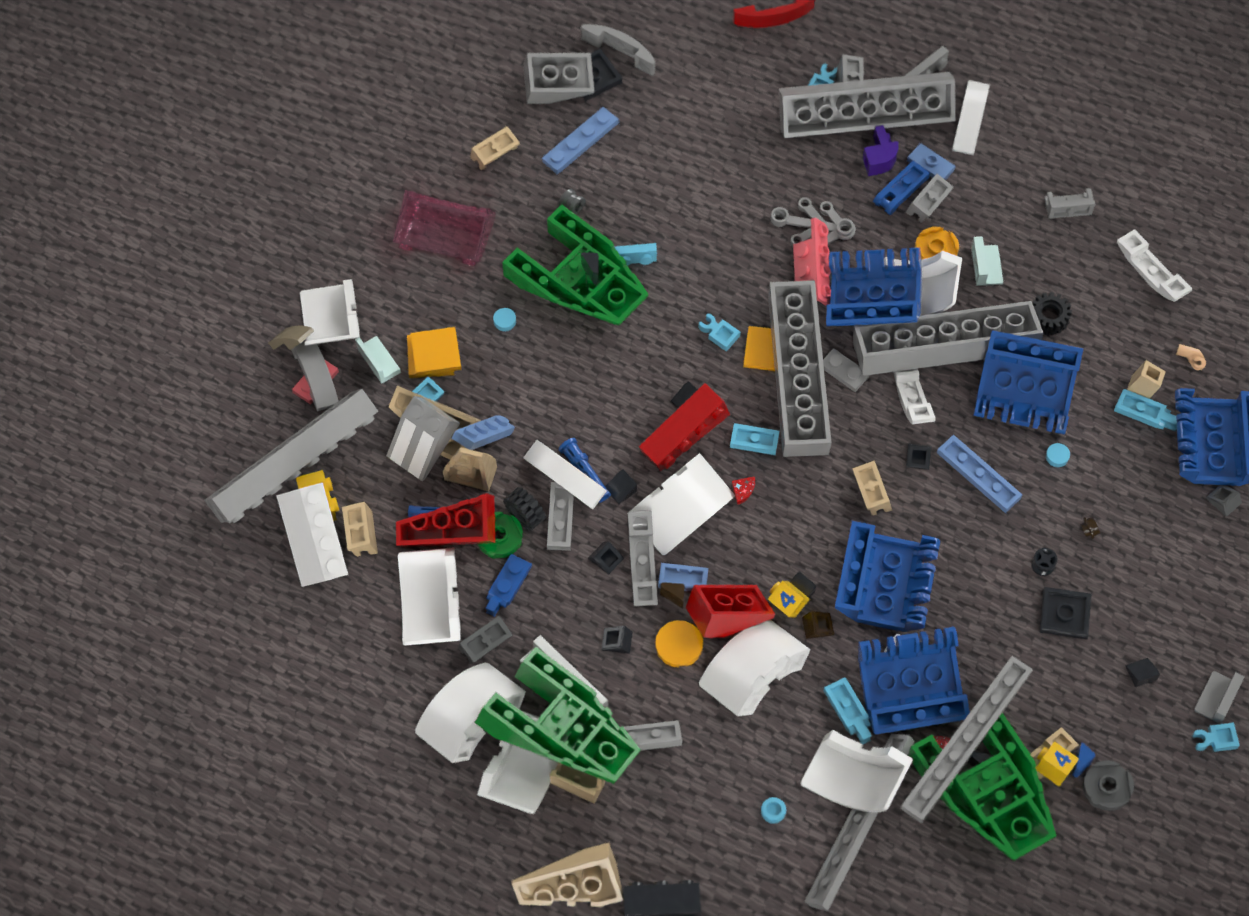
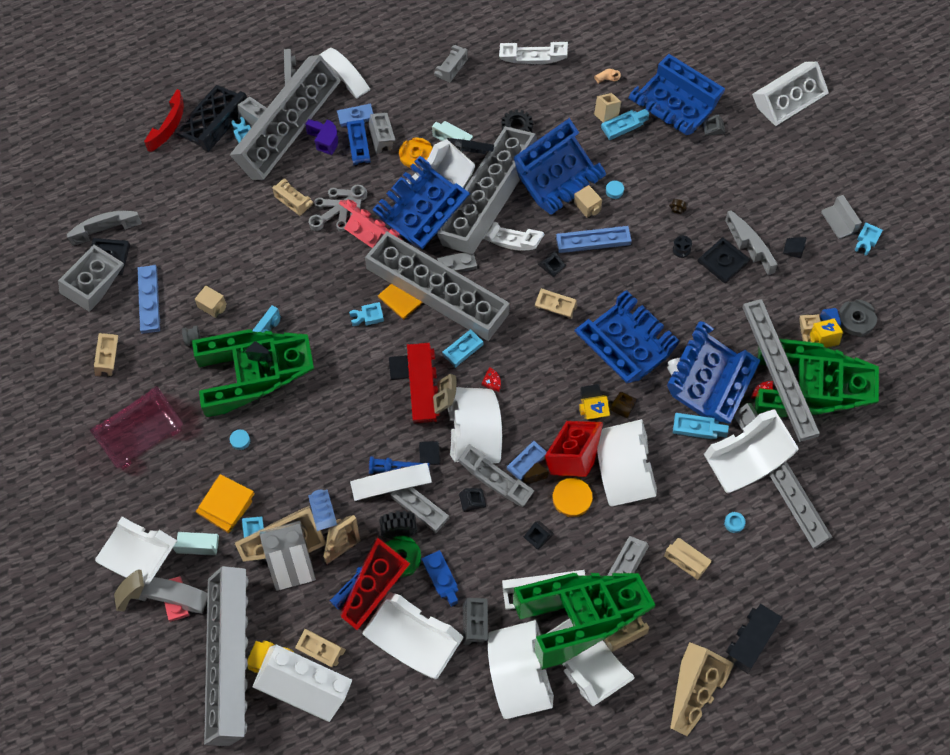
camera: 50 degrees left, 0 degrees up
(619, 191) = (210, 301): none -> tan brick
(682, 456) = (446, 393): none -> dark tan slope
(700, 789) = (687, 558): none -> tan panel
(789, 176) = (291, 197): none -> tan hinge
(813, 58) = (221, 122): none -> black fence
(974, 280) = (471, 146): none -> black plate
(1018, 439) = (588, 201): none -> tan brick
(1108, 619) = (748, 238): none -> light grey slope

